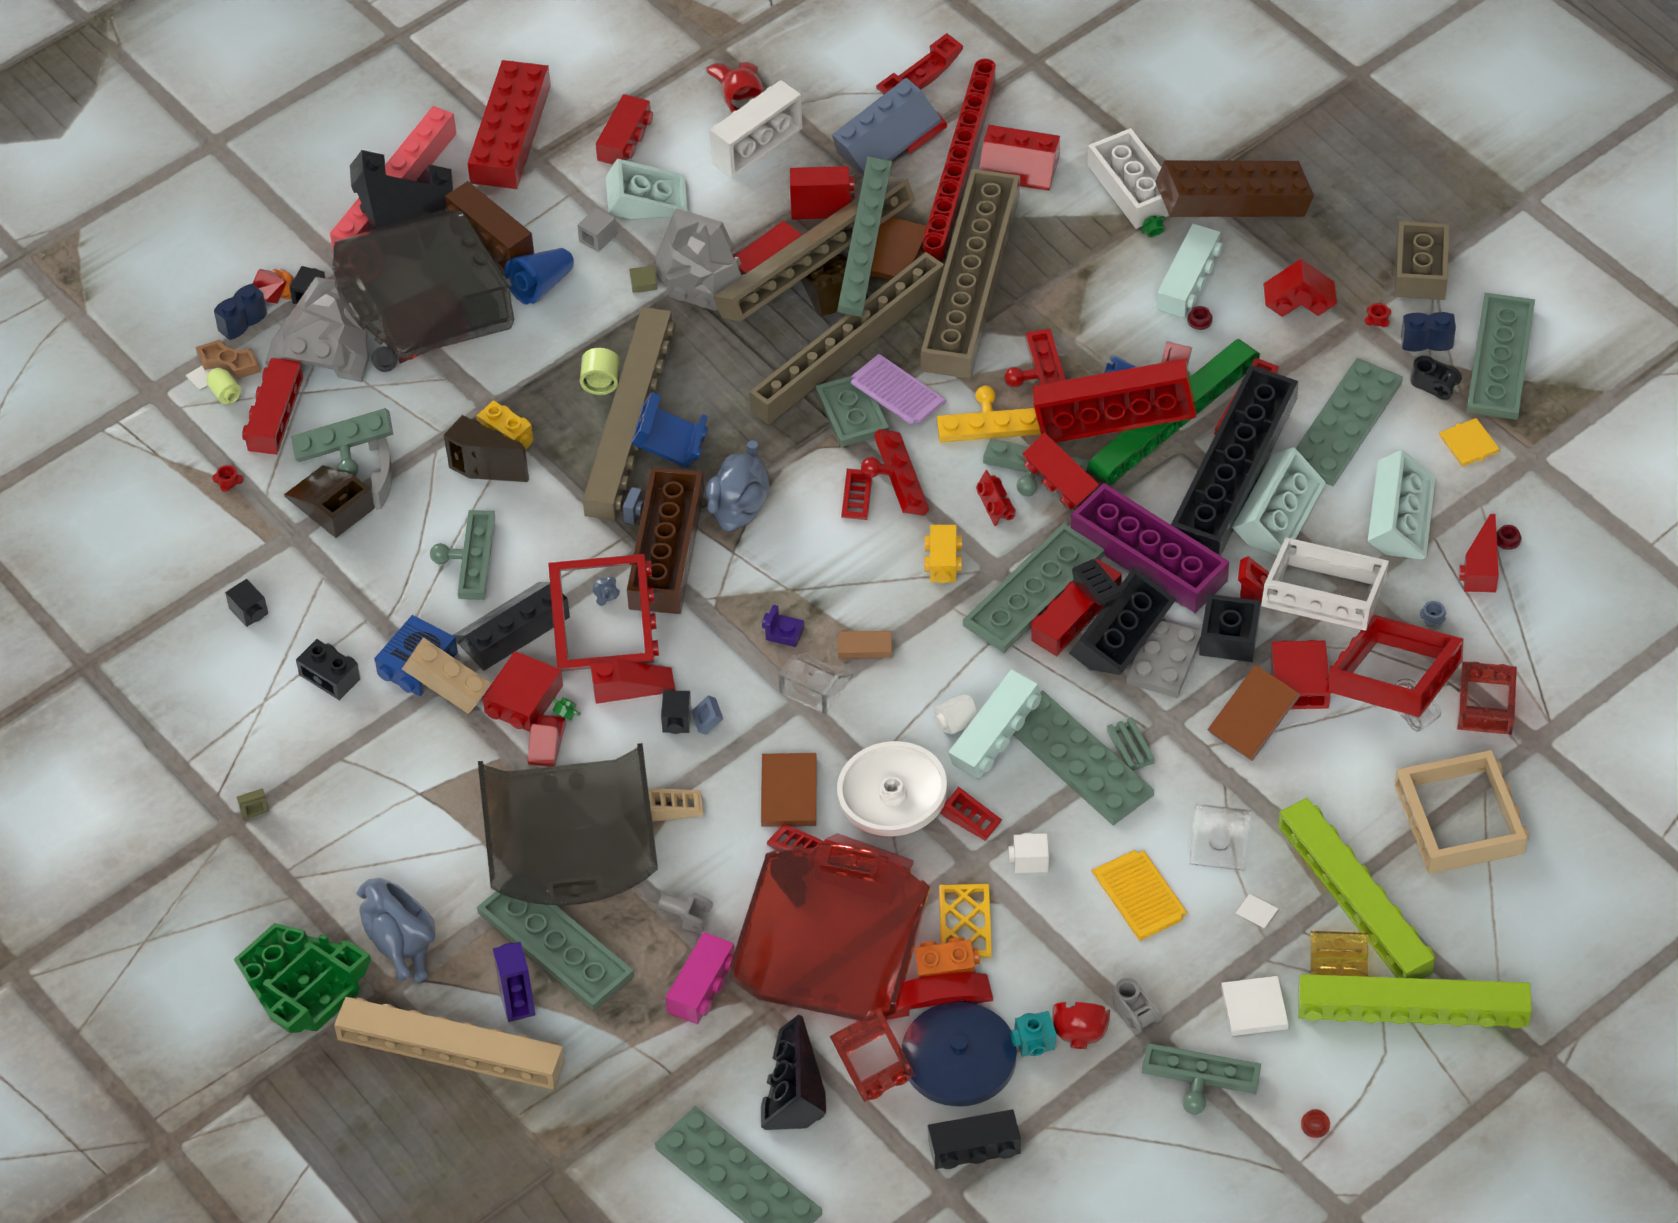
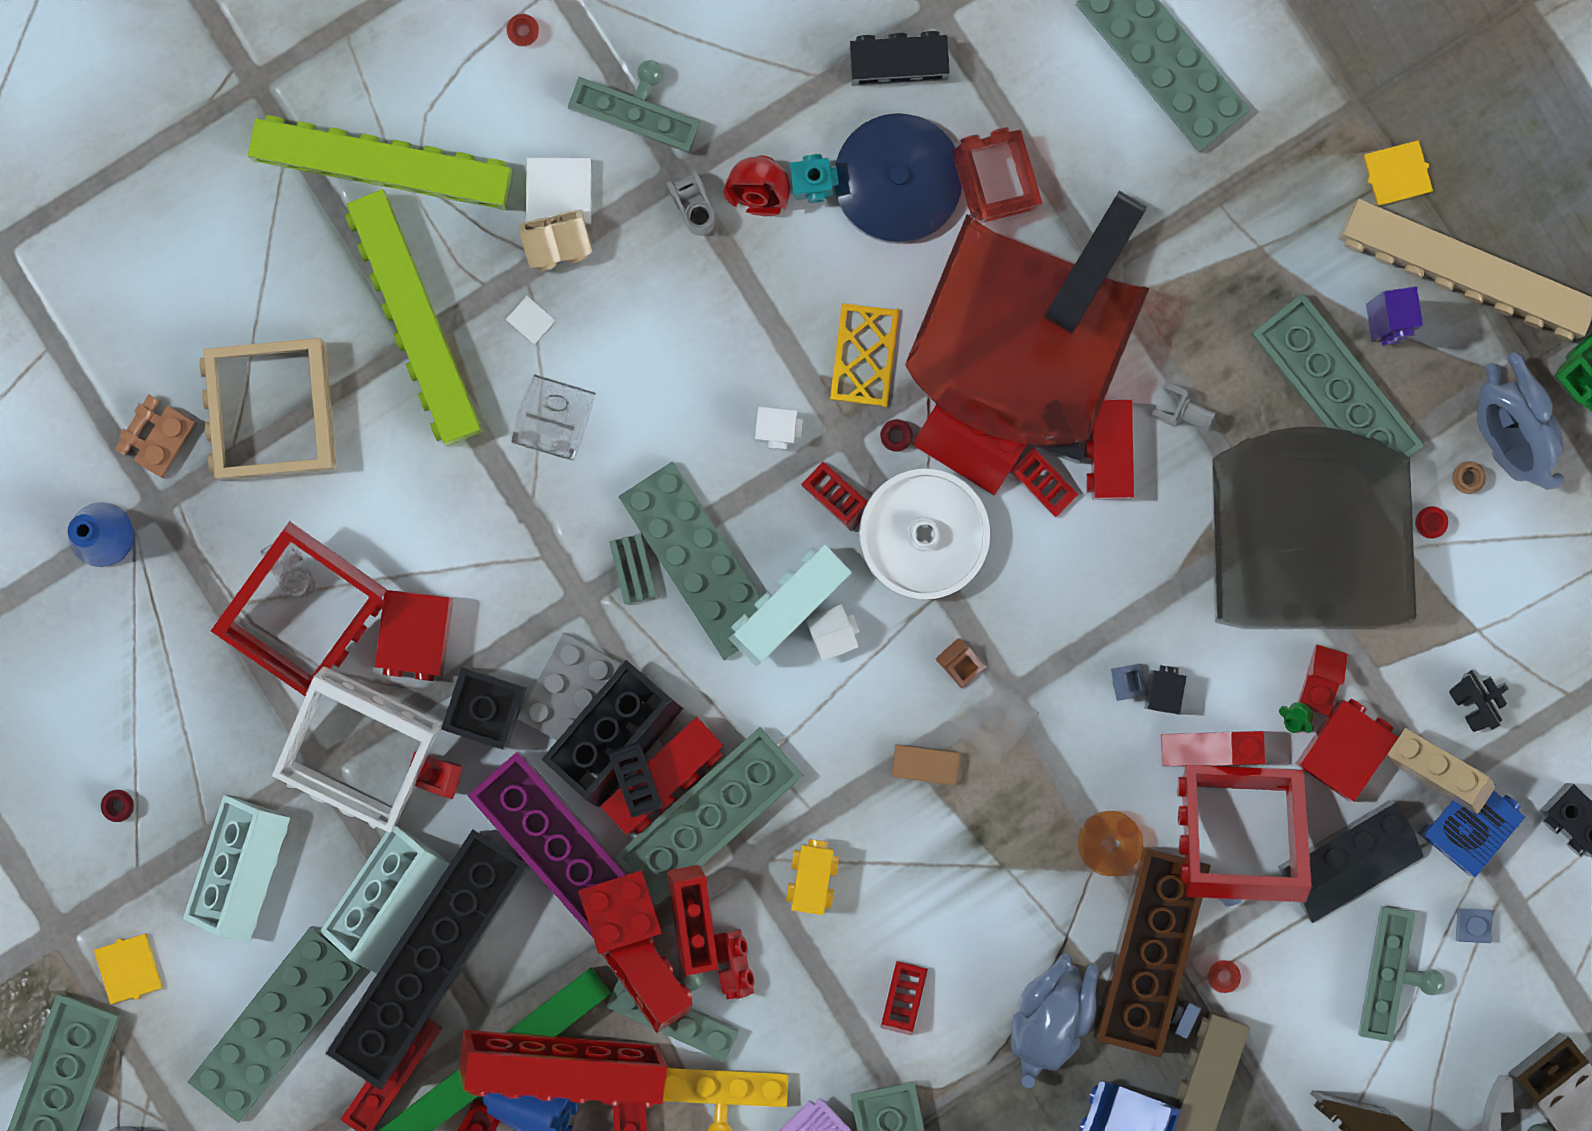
camera: 170 degrees left, 35 degrees up
(408, 596) = (1474, 925): none -> sand blue plate
(412, 738) = (1471, 688): none -> black hips
(436, 888) = (1478, 477): none -> medium nougat plate
(465, 858) = (1431, 522): none -> red plate
(516, 1116) = (1397, 173): none -> yellow piece
(605, 538) = (1233, 981): none -> clear red plate
(665, 812) = (1152, 563): tan slope -> none
(700, 978) = (1175, 312): dark pink brick -> none
(712, 622) = (1123, 830): none -> clear orange plate
(741, 867) = (1111, 452): none -> red brick
(776, 998) = (1095, 262): none -> black beam
(782, 628) = (1021, 803): dark purple bracket -> none
(788, 789) = (1043, 565): dark orange tile -> none
(796, 1085) = (1087, 153): black wedge -> none
(848, 716) = (960, 662): none -> dark orange slope
(899, 469) = (847, 1024): red plate -> none
(924, 857) = (904, 428): none -> dark red plate
(943, 989) = (899, 256): red slope -> none
(947, 957) = (896, 290): orange brick -> none
(1033, 510) = (692, 920): none -> red brick
(1090, 501) = (620, 911): none -> red plate
(1140, 893) = (658, 362): yellow window -> none
(1247, 961) = (555, 239): none -> tan brick
(1253, 712) = (480, 579): dark orange tile -> none
(1339, 953) = (452, 235): clear yellow slope -> none
(1433, 377) = (140, 1069): black piece -> none
(1433, 608) = (228, 709): sand blue plate -> none
(1481, 560) = (158, 768): red slope -> none
(1484, 718) = (235, 545): clear red window -> none
(1543, 781) = (164, 440): none -> nougat plate
(1578, 705) = (101, 534): none -> blue cone

